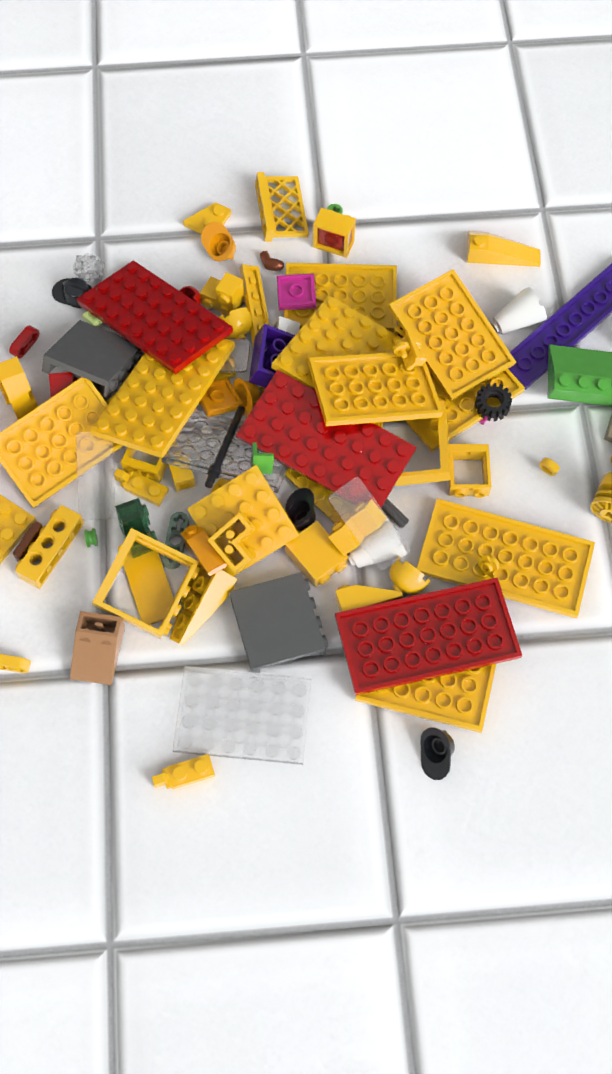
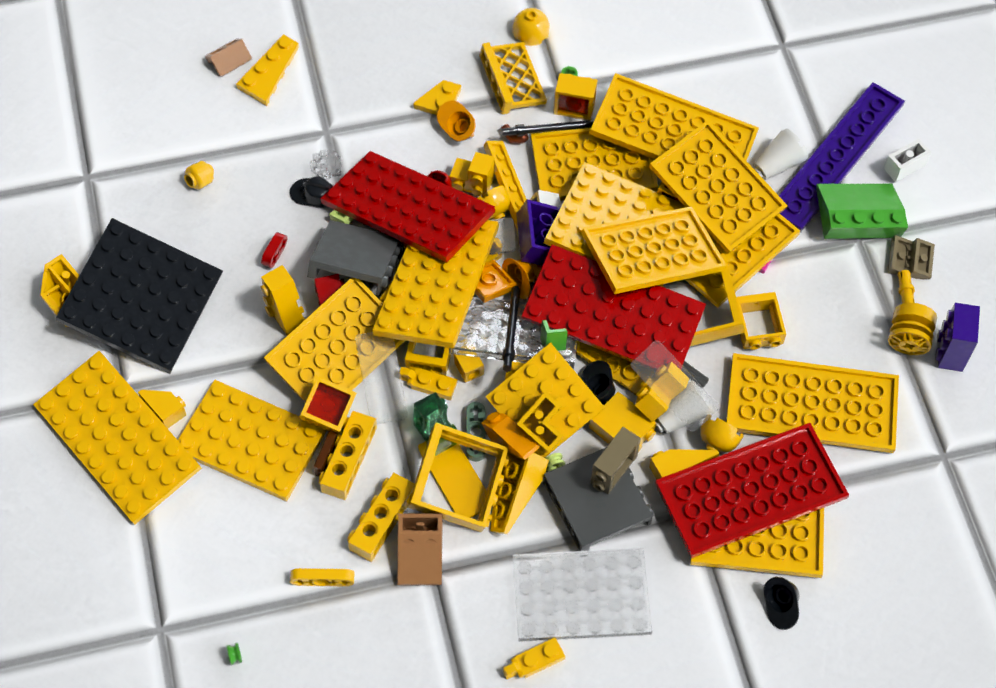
camera: 10 degrees left, 5 degrees down
(23, 158) = (229, 56): none -> medium nougat panel
(36, 496) = (327, 405): none -> piece
(53, 177) = (265, 74): none -> yellow wing
(66, 621) = (369, 546): none -> yellow brick
(91, 537) = (389, 440): bright green bush -> none
(243, 580) = (555, 461): none -> yellowish green bush
(276, 258) = (521, 130): none -> black bar
(296, 292) = (548, 162): dark pink tile -> none
(296, 589) = (615, 460): none -> dark tan window
(307, 162) = (531, 26): none -> yellow cylinder
(402, 262) = (655, 120): none -> yellow plate
(408, 349) = (680, 206): yellow hips -> none
(489, 565) = (799, 411): yellow plate -> none
(494, 249) = (742, 93): yellow wedge -> none
(496, 392) = (774, 239): black tyre -> none
(549, 466) = (839, 306): yellow tile -> none

